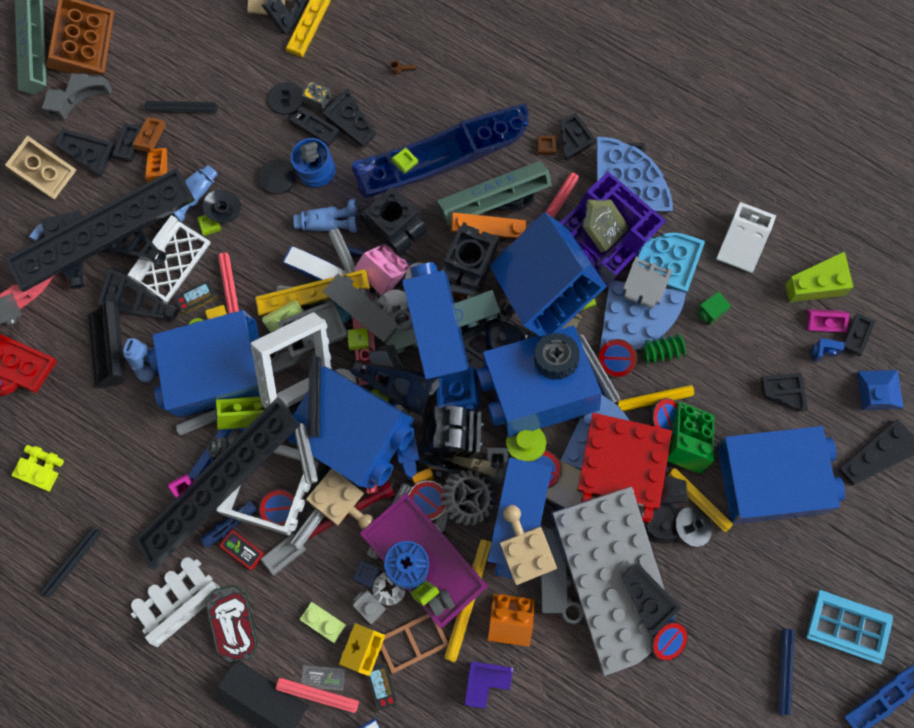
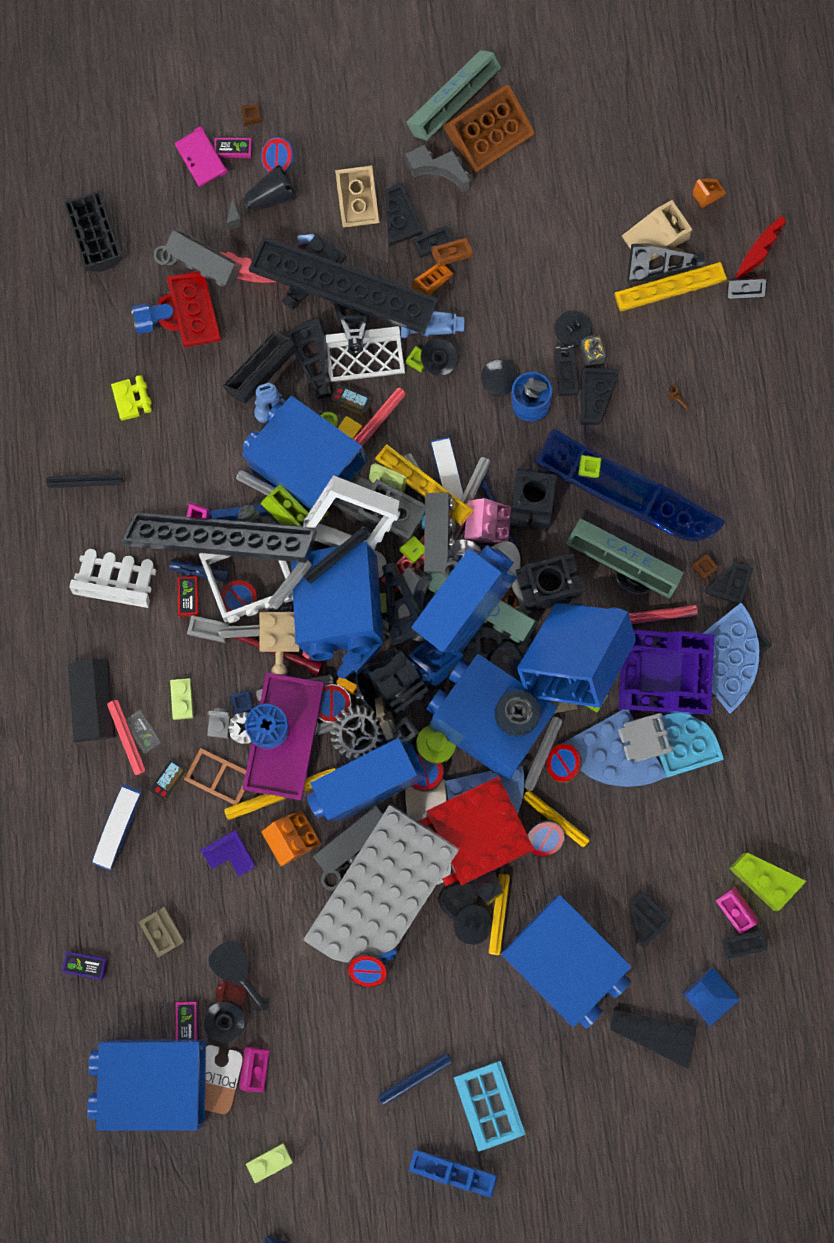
camera: 50 degrees right, 5 degrees up
(181, 106) = (497, 255): black axle -> none
(231, 623) = (128, 633): shield -> none
(324, 218) = (493, 443): medium blue piece -> none
(362, 649) = (183, 743): yellow brick -> none
(425, 592) = (258, 756): lime tile -> none
(437, 605) = (260, 774): dark grey wheel -> none
(502, 227) = (592, 576): orange plate -> none
(526, 552) = (337, 805): tan plate -> none
(603, 223) = (665, 666): olive tile -> none
(650, 599) = (384, 931): black wing -> none
(663, 348) = (600, 793): green piece -> none
(692, 438) = (543, 870): green slope -> none
(713, 308) = (669, 809): green brick -> none
(746, 237) = (754, 790): white slope -> none
(826, 346) = (711, 929): blue bracket -> none

